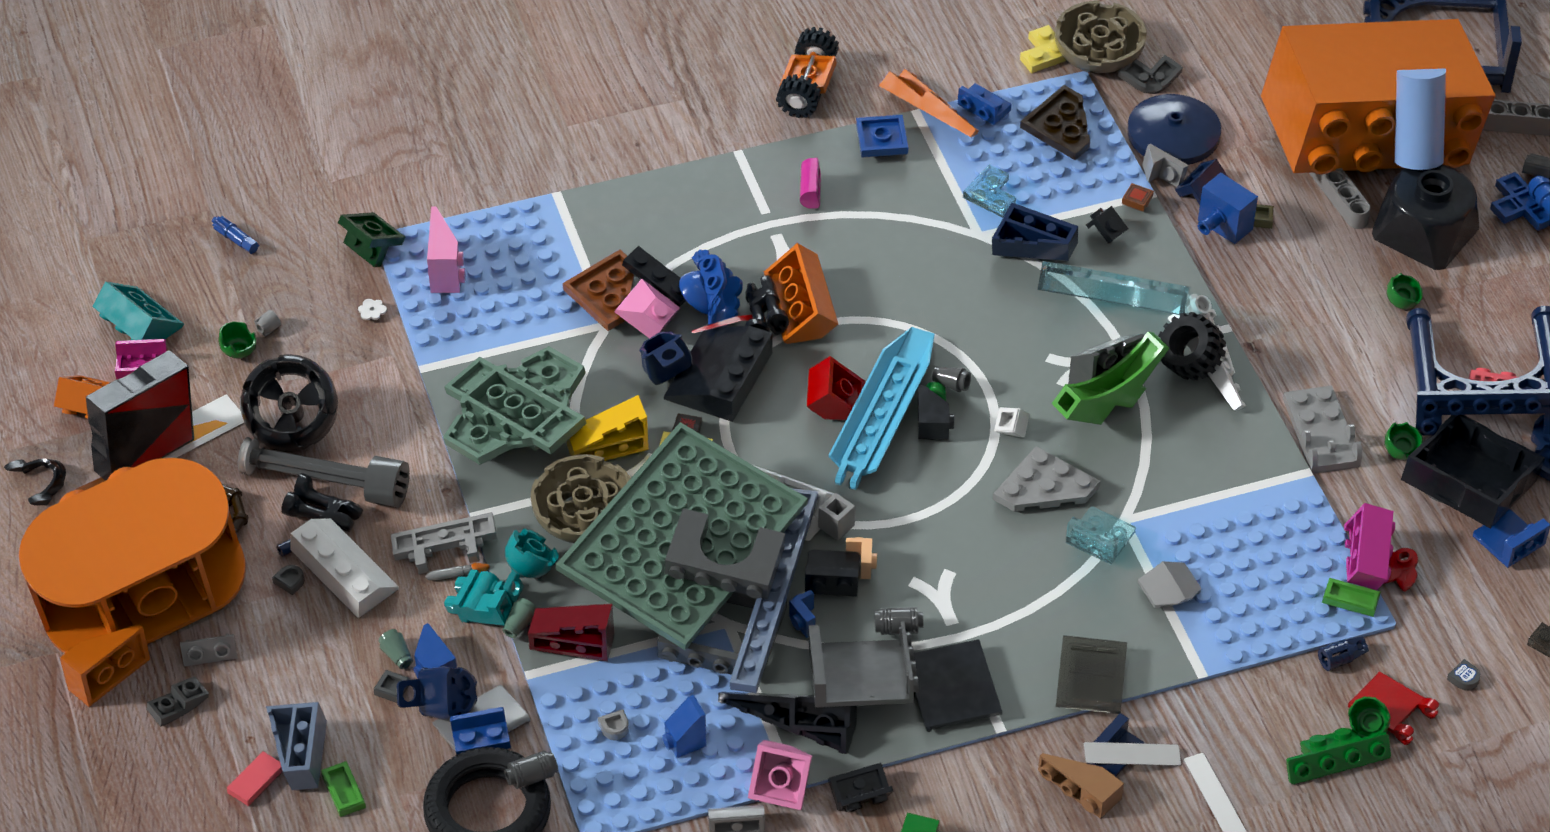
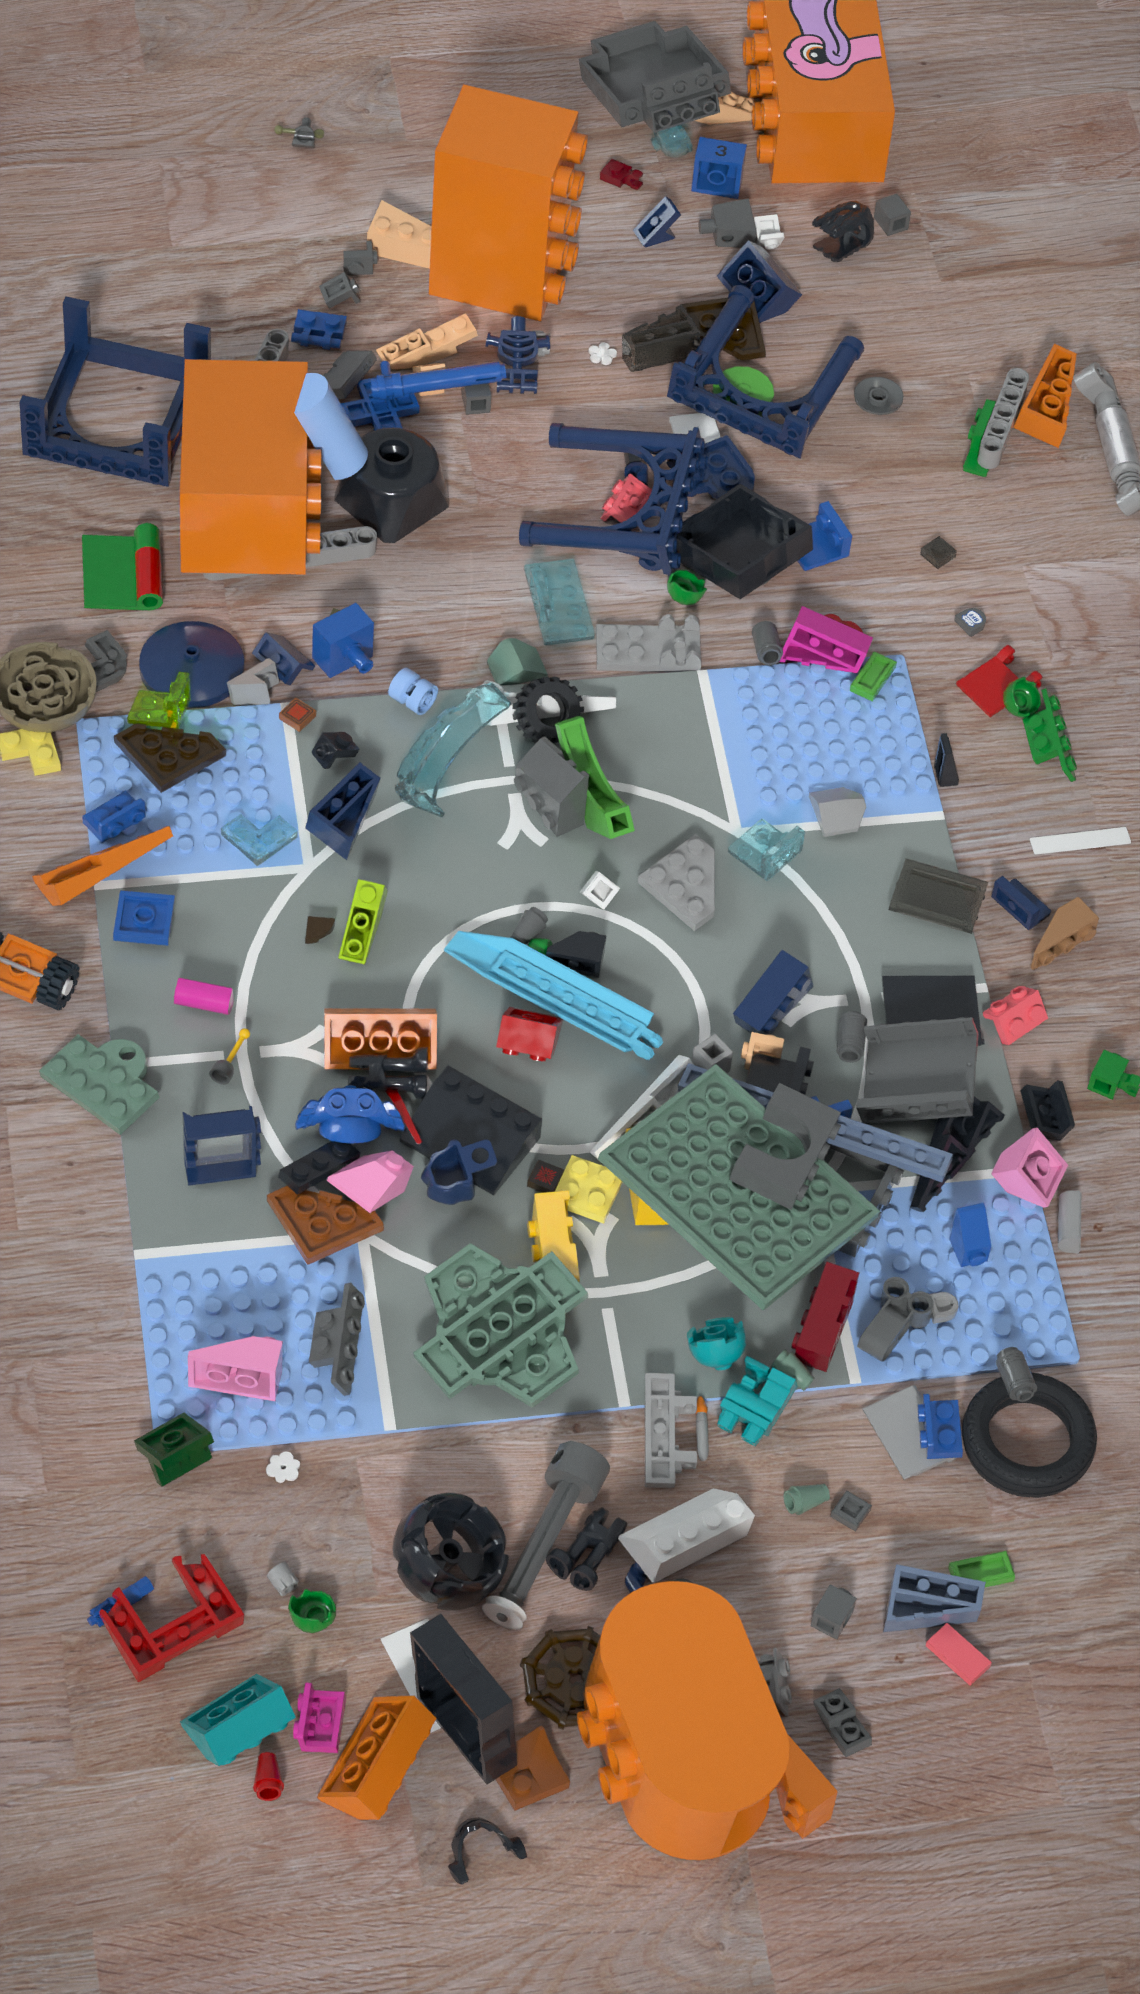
camera: 85 degrees left, 5 degrees up
(90, 340) = (268, 1779): none -> red cone
(229, 288) = (147, 1653): none -> red wedge
(282, 679) = (833, 1611): none -> dark grey brick
(432, 651) = (825, 1463): blue slope -> none
(440, 692) = (886, 1453): dark blue piece -> none
(491, 317) = (337, 1338): none -> dark grey bracket
(576, 478) = (650, 1255): dark tan brick -> none
(587, 684) = (895, 1318): none -> dark grey piece
(650, 215) = (221, 1146): none -> dark blue window
(715, 143) = (102, 1080): none -> sand green plate
(742, 207) = (223, 1070): none -> dark grey hinge
(907, 244) = (318, 928): none -> dark brown tile
(925, 555) = (774, 995): none -> dark blue wedge
(927, 267) = (363, 921): none -> lime slope
(969, 752) = (1016, 1013): none -> coral bracket
(1110, 110) = (162, 708): none -> clear neon green bracket
(1132, 753) = (1037, 886): white sticker -> none
(1187, 261) = (411, 689): none -> light blue wheel
(1243, 68) = (123, 570): none -> green door
(1259, 666) = (945, 764): none -> black slope
(1264, 339) = (515, 663): none -> sand green slope
(1347, 507) = (767, 642): none -> dark grey head
(1348, 352) = (559, 602): none -> clear light blue bracket
(1348, 650) = (935, 702): dark blue hinge -> none
(1404, 291) = (486, 535): green hair -> none

